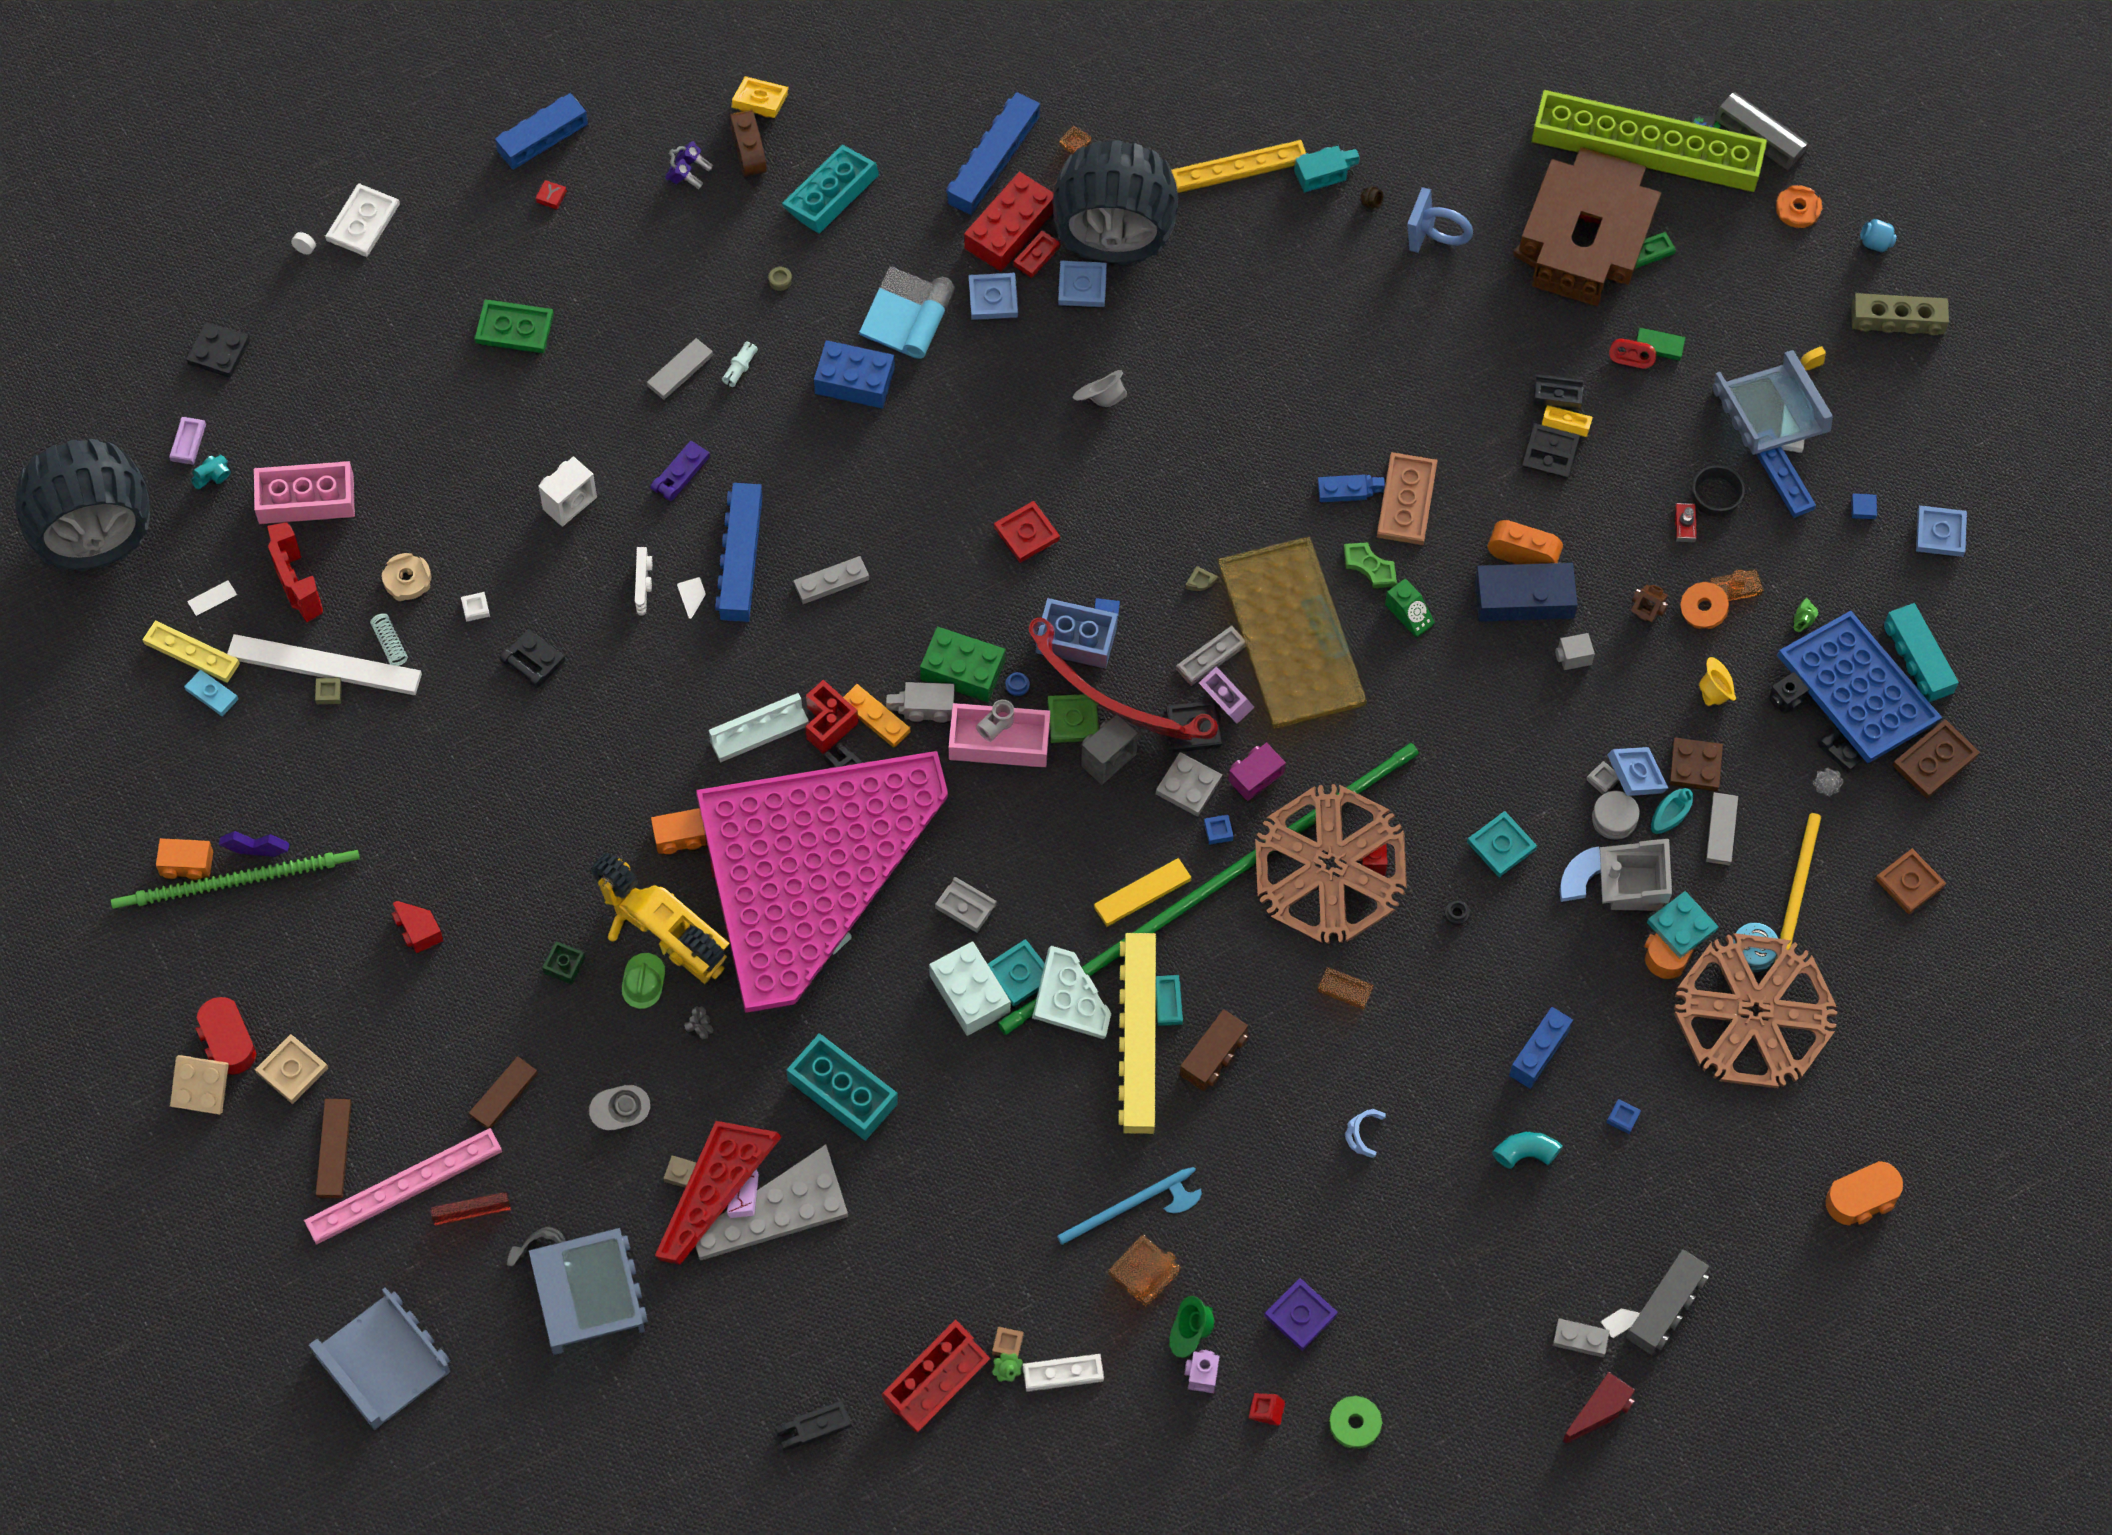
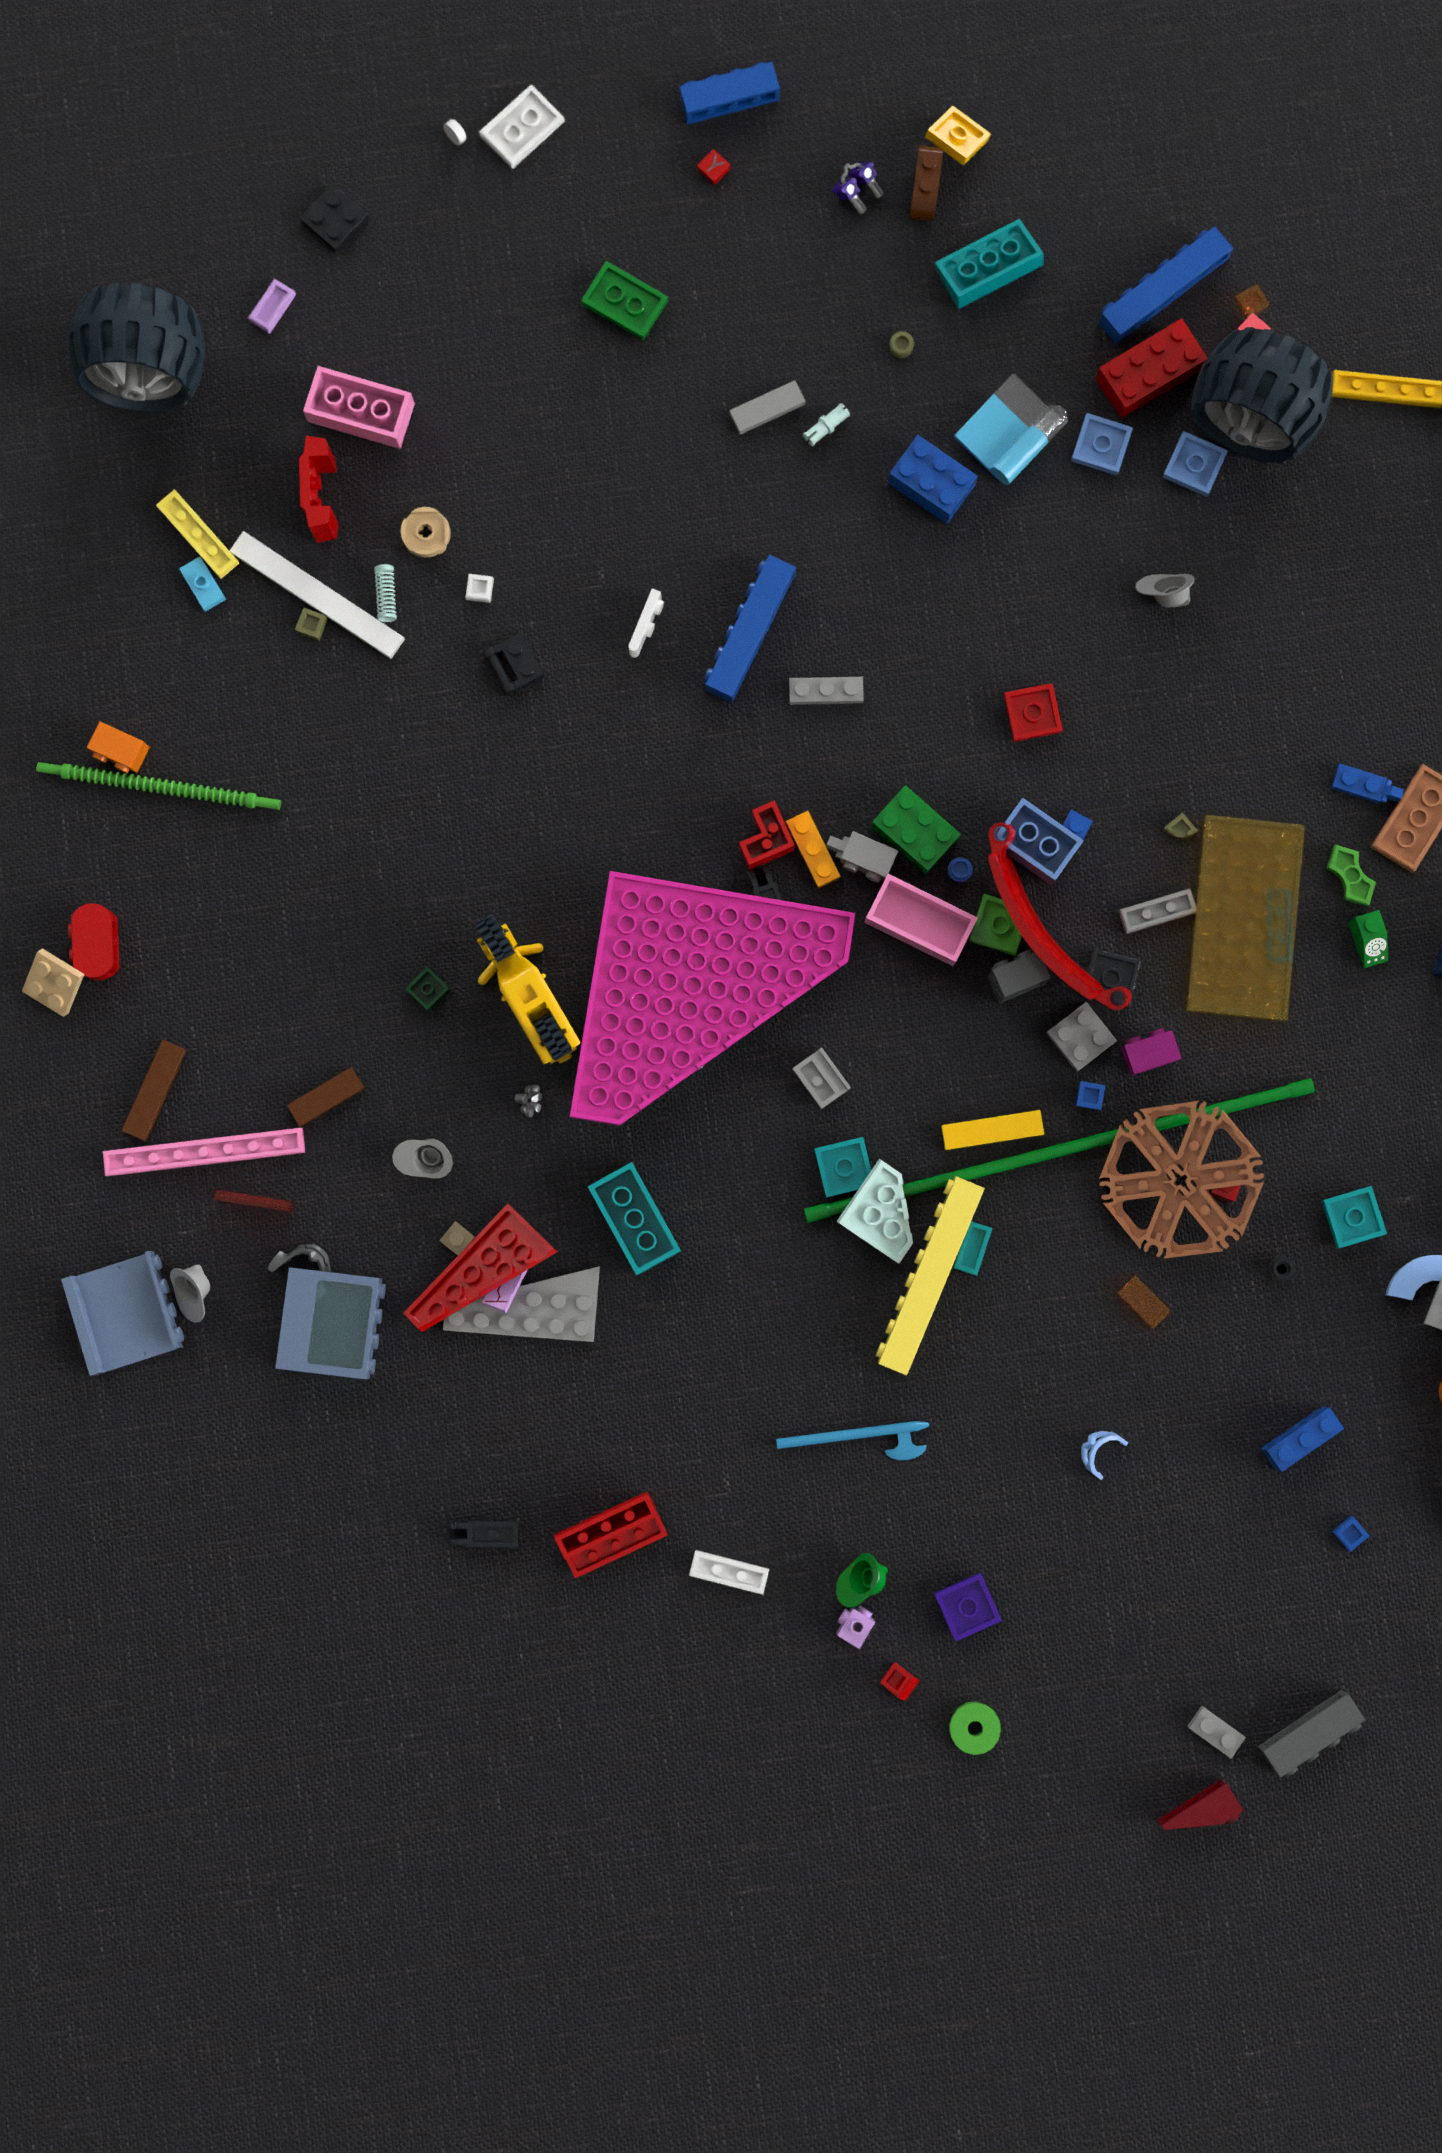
camera: 25 degrees right, 20 degrees up
(211, 469) = (282, 347): teal plate -> none
(212, 598) = (238, 483): white sticker -> none
(264, 846) = (190, 761): dark purple tile -> none
(291, 1068) = (142, 998): tan plate -> none
(419, 926) = (307, 902): red slope -> none
(439, 1313) = (190, 1290): none -> light grey piece
(567, 491) = (607, 502): white brick -> none
(643, 980) = (495, 1034): bright green piece -> none
(678, 831) = (580, 899): orange brick -> none
(680, 471) = (726, 518): dark purple plate -> none
(692, 594) = (688, 654): white sticker -> none
(758, 727) = (697, 821): light aqua fence -> none
(969, 988) = (791, 1166): light aqua brick -> none
(991, 730) = (909, 917): light grey piece -> none
(1007, 1341) = (689, 1526): medium nougat plate -> none
(1007, 1367) = (679, 1549): bright green plant -> none
(1036, 254) = (1163, 414): red plate -> none
(1145, 1270) = (841, 1506): clear orange plate -> none
(1214, 1050) = (994, 1318): reddish brown brick -> none
(1226, 695) = (1154, 962): lavender brick -> none
(1526, 1145) = (1248, 1529): teal cylinder -> none
(1619, 1321) = (1259, 1729): white sticker -> none

